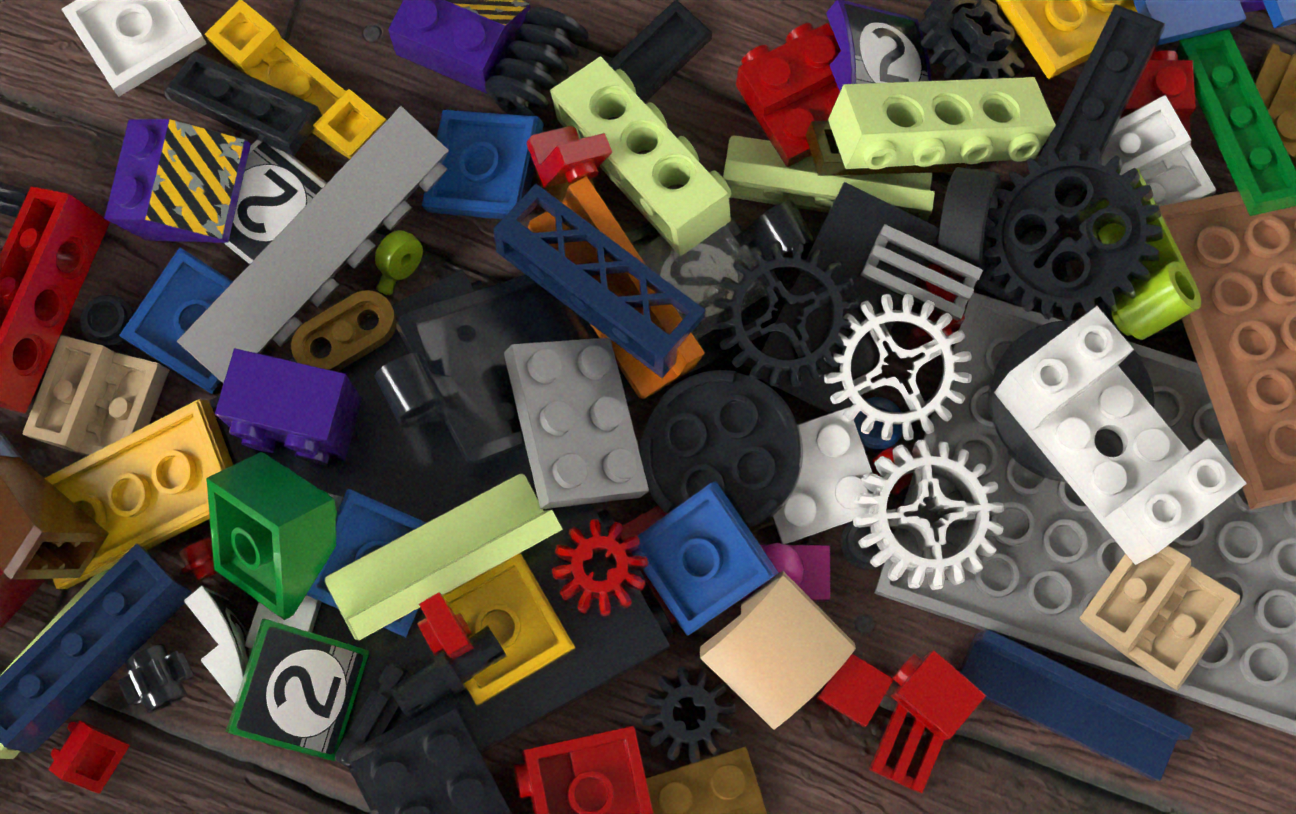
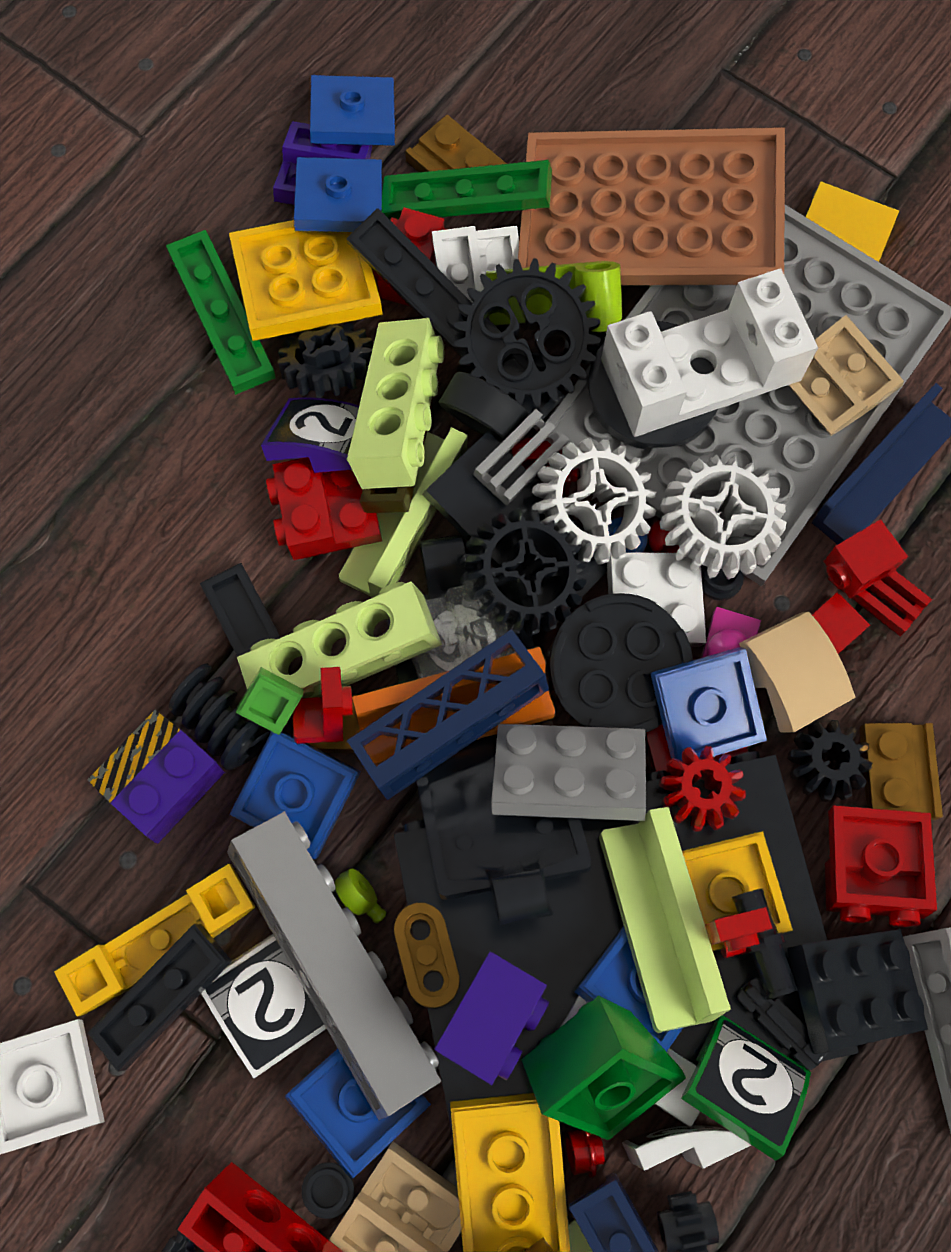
camera: 75 degrees left, 5 degrees down
(177, 182) = (220, 1079): slope -> none
(559, 99) = (269, 701): none -> bright green tile

